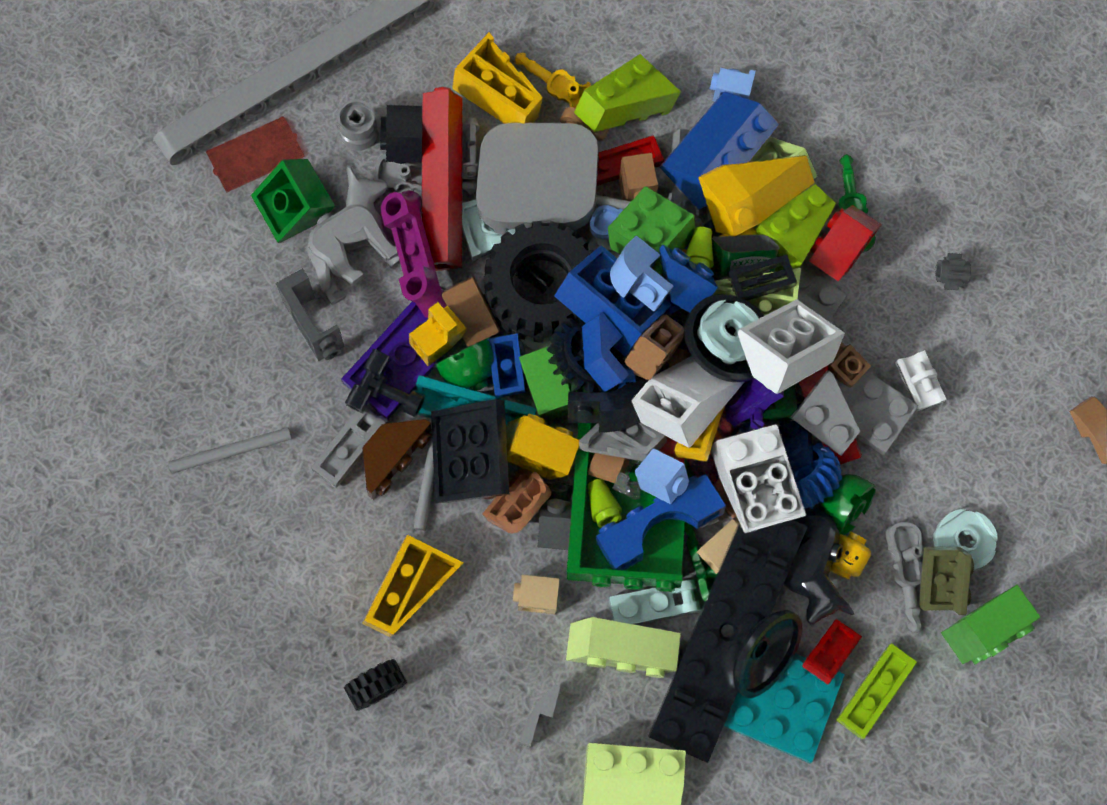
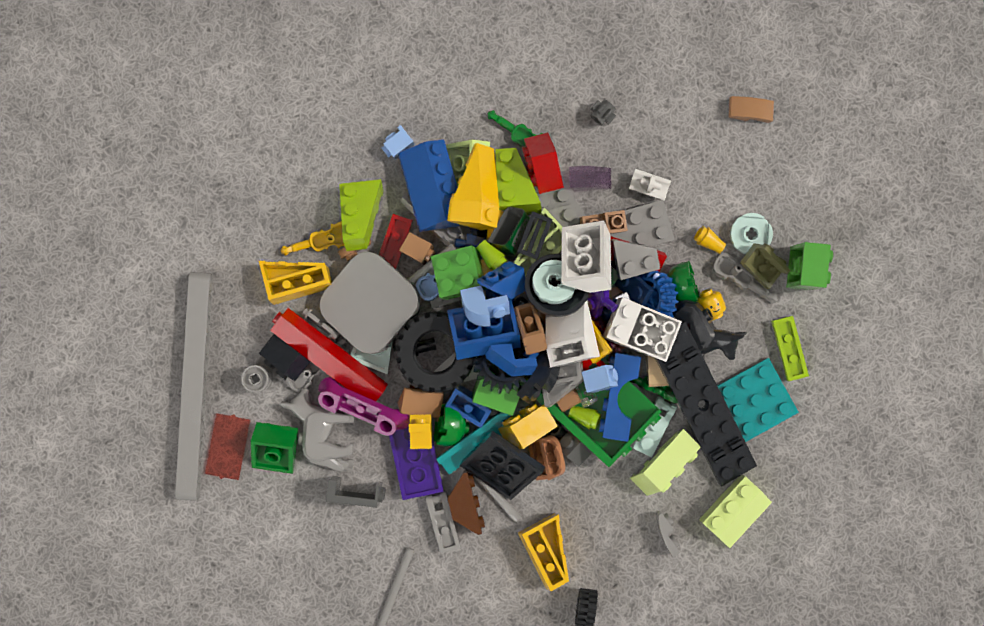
camera: 50 degrees left, 15 degrees up
(374, 384) = (421, 486): black bar -> none
(536, 594) = (602, 486): tan brick -> none
(766, 652) = (731, 397): black dish -> none
(831, 651) = (753, 355): red plate -> none
(872, 306) = (590, 177): none -> clear purple slope
(918, 497) = (707, 238): none -> yellow cone

